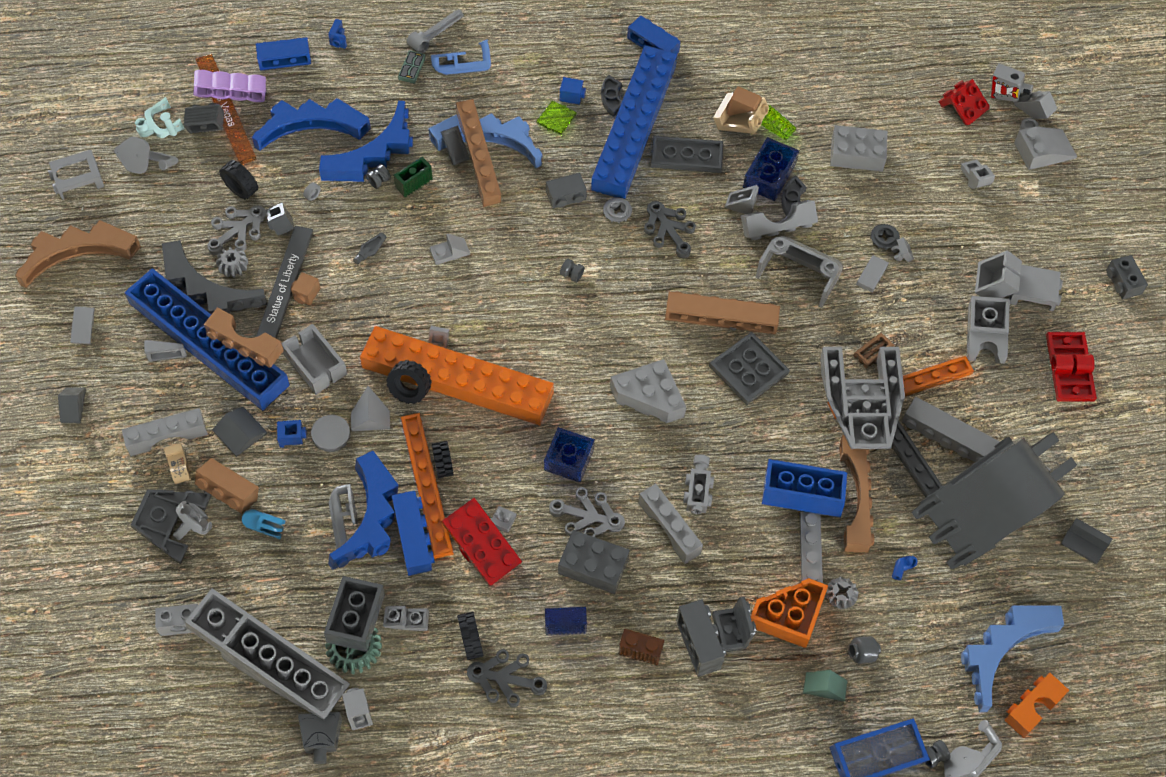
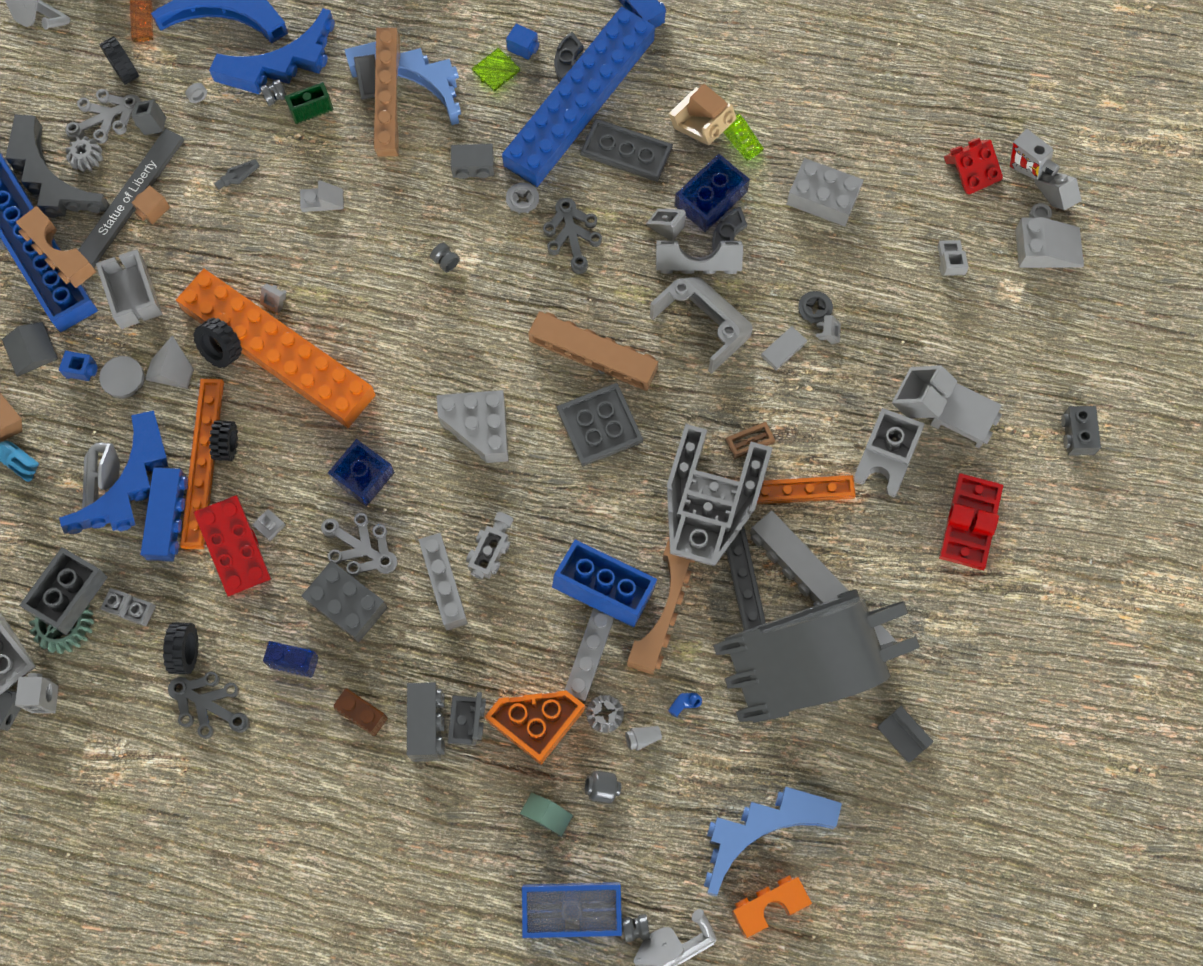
camera: 20 degrees right, 10 degrees up
(879, 602) = (642, 736): none -> light grey cone

